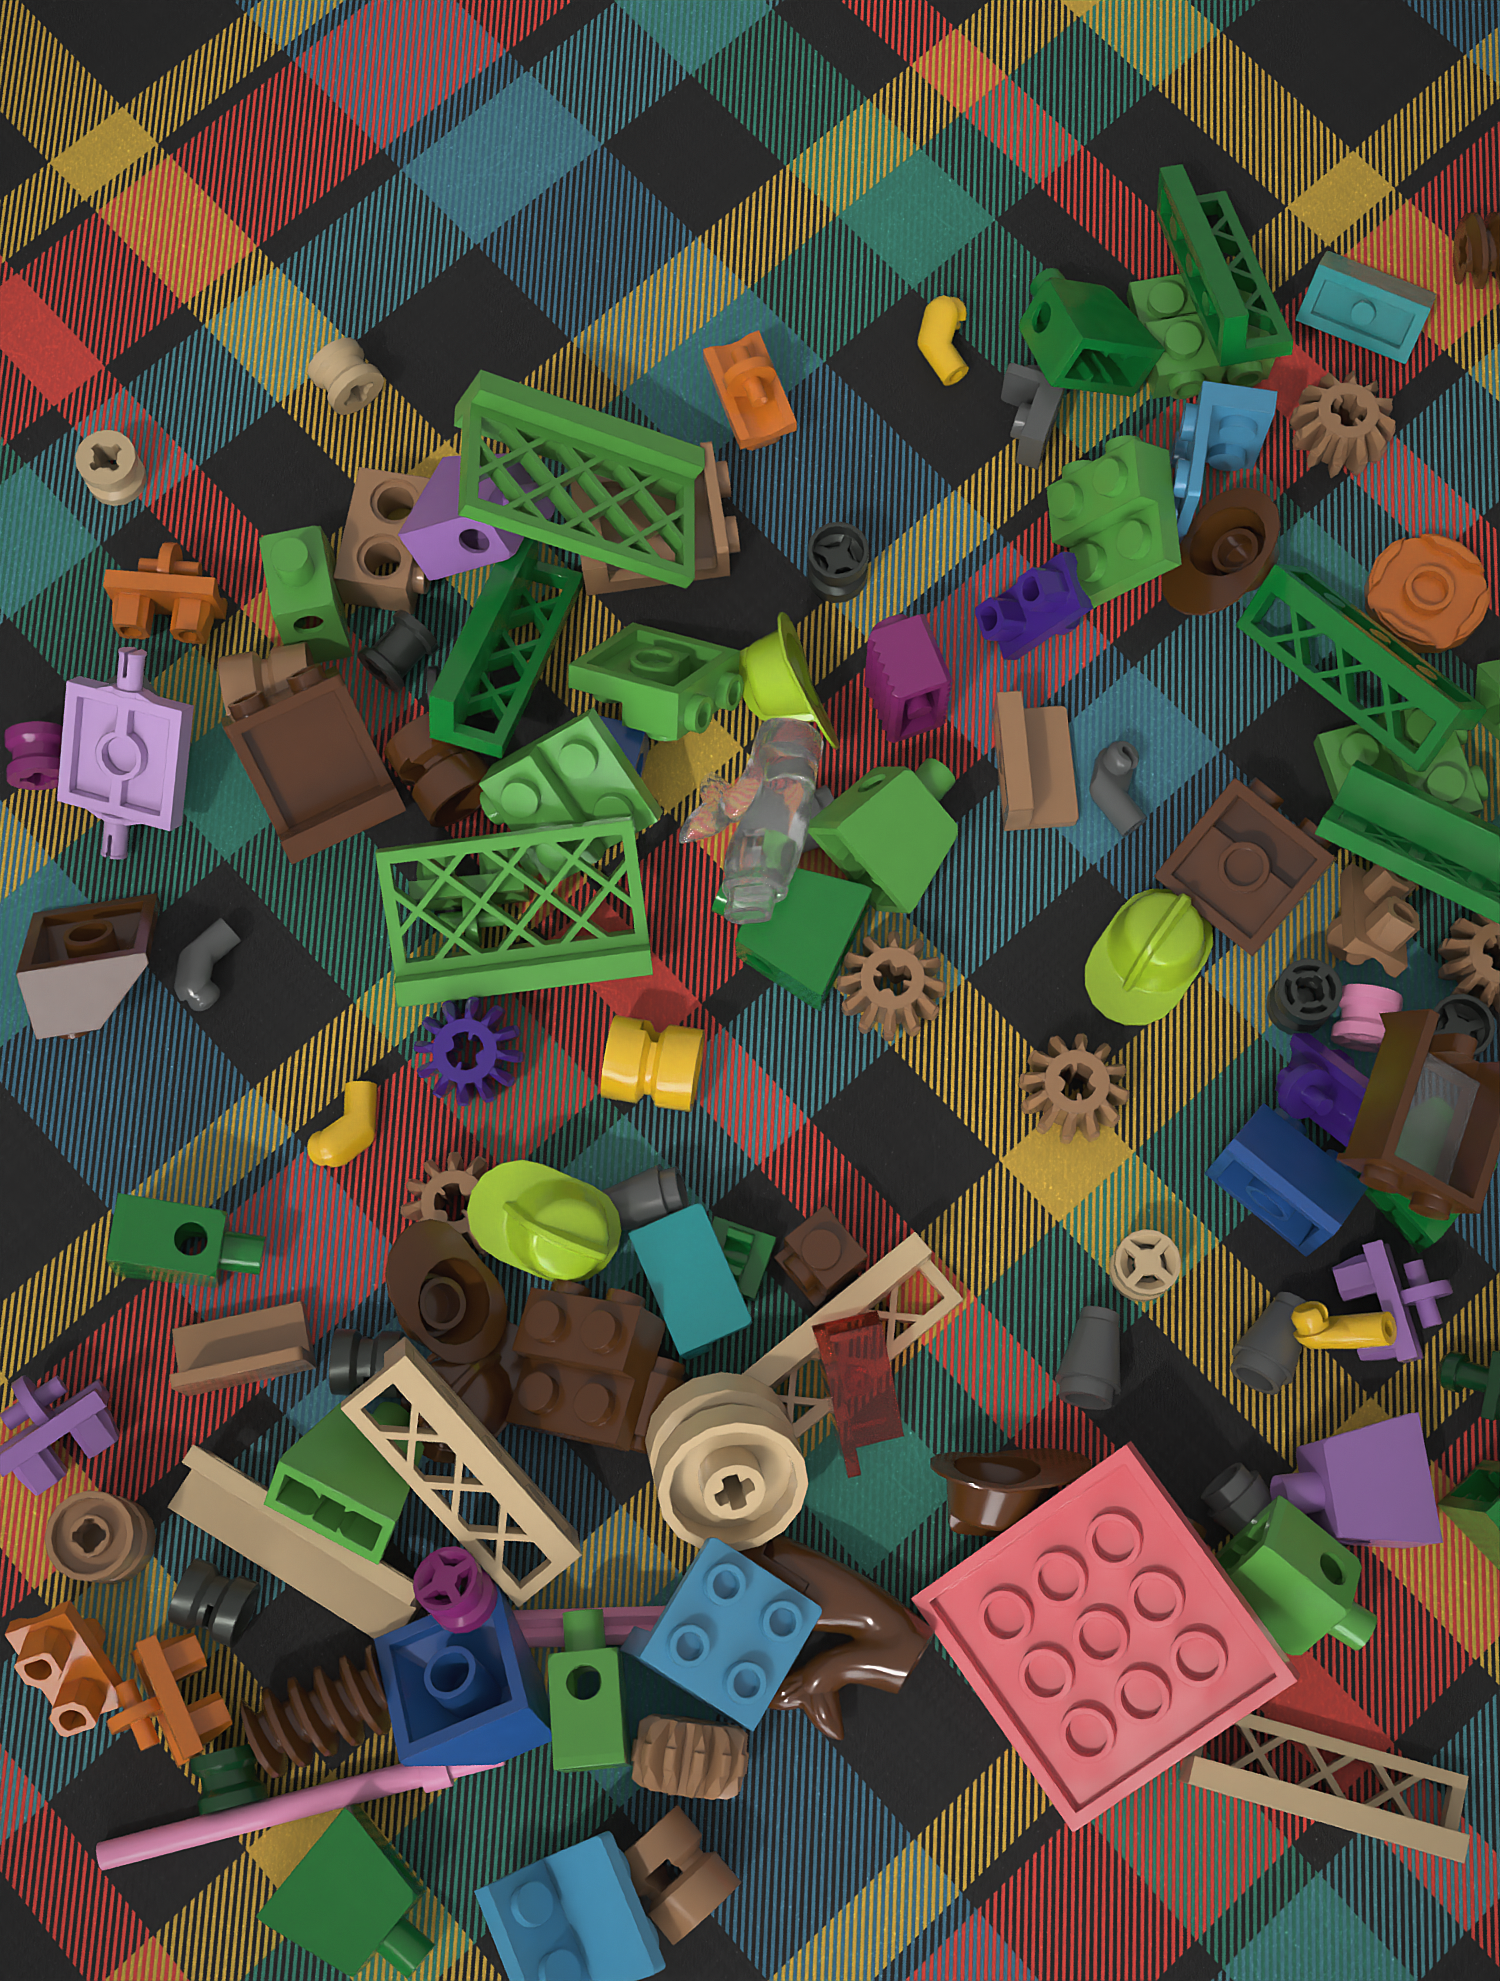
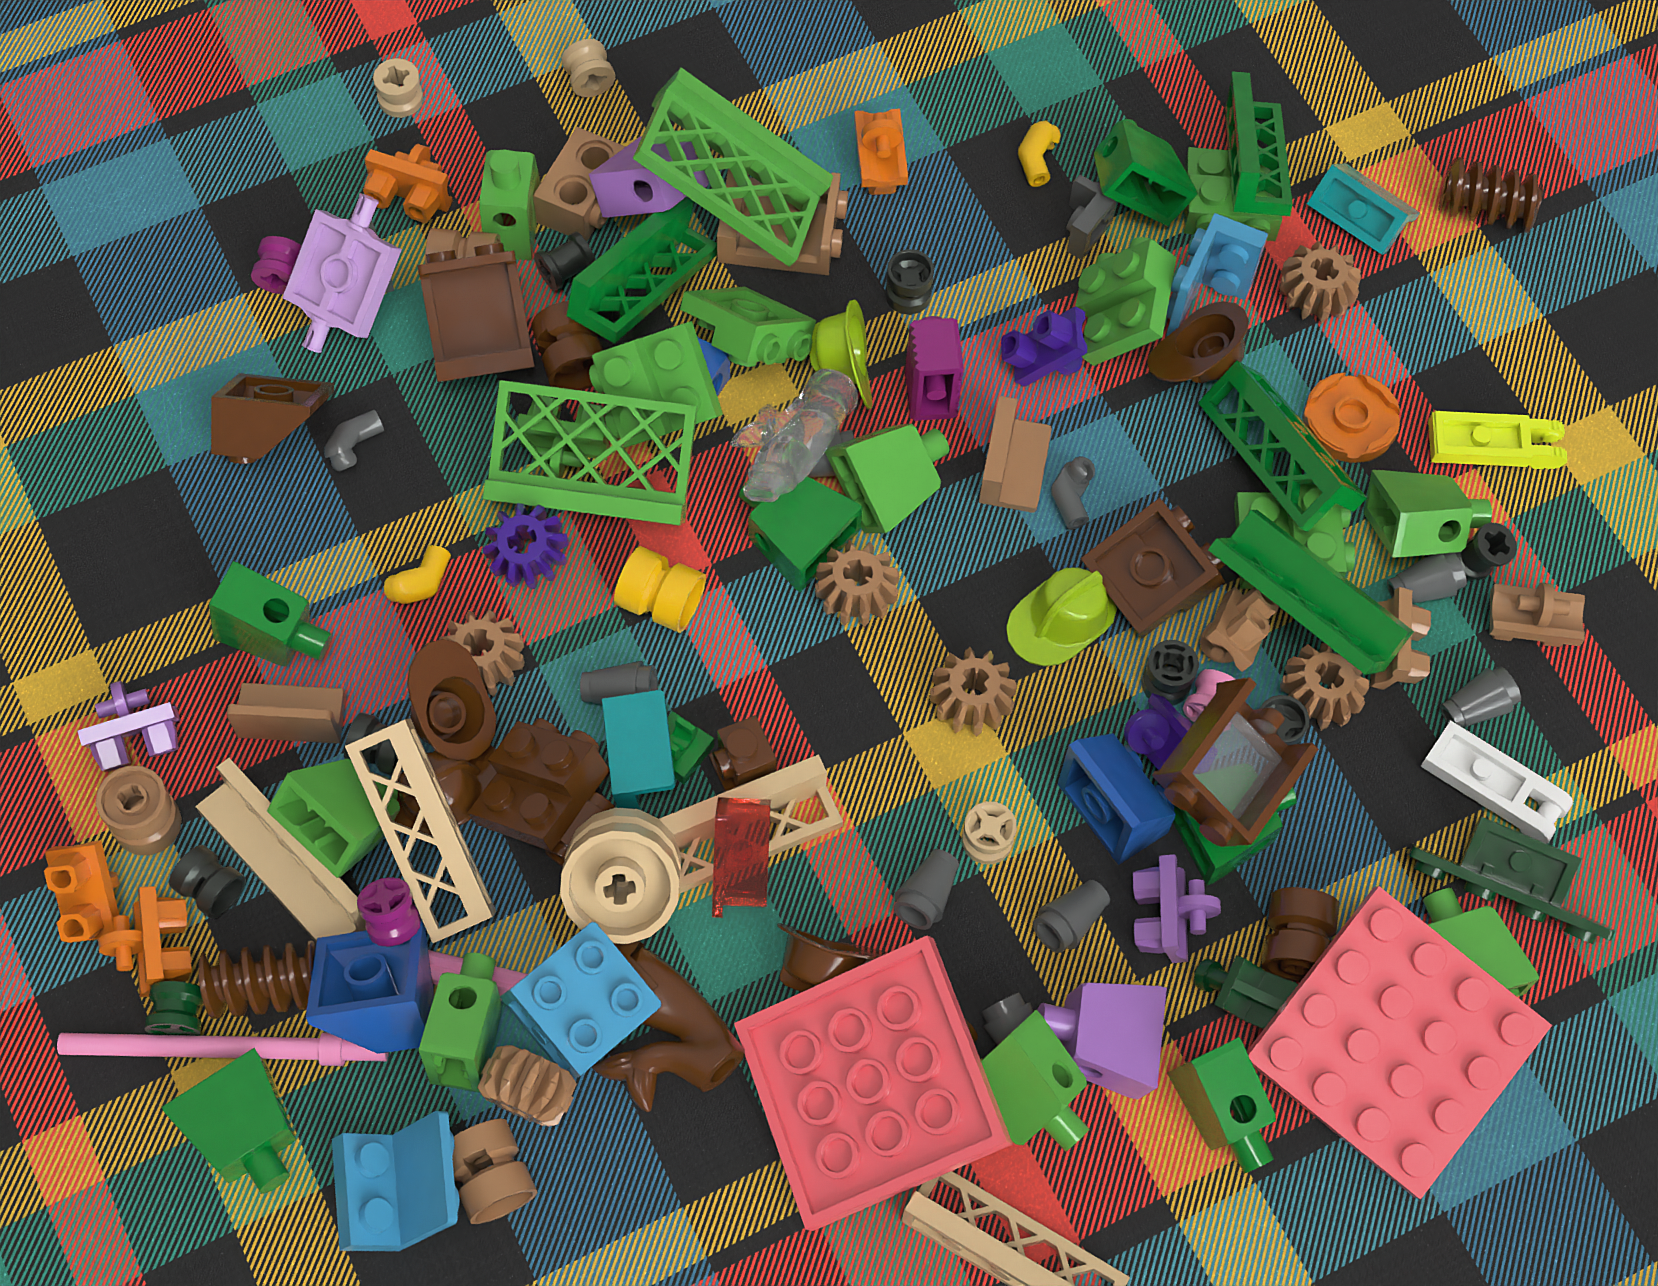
camera: 10 degrees right, 10 degrees down
(544, 1221) = (542, 674): lime piece -> none
(1351, 1331) = (1125, 916): yellow arm -> none

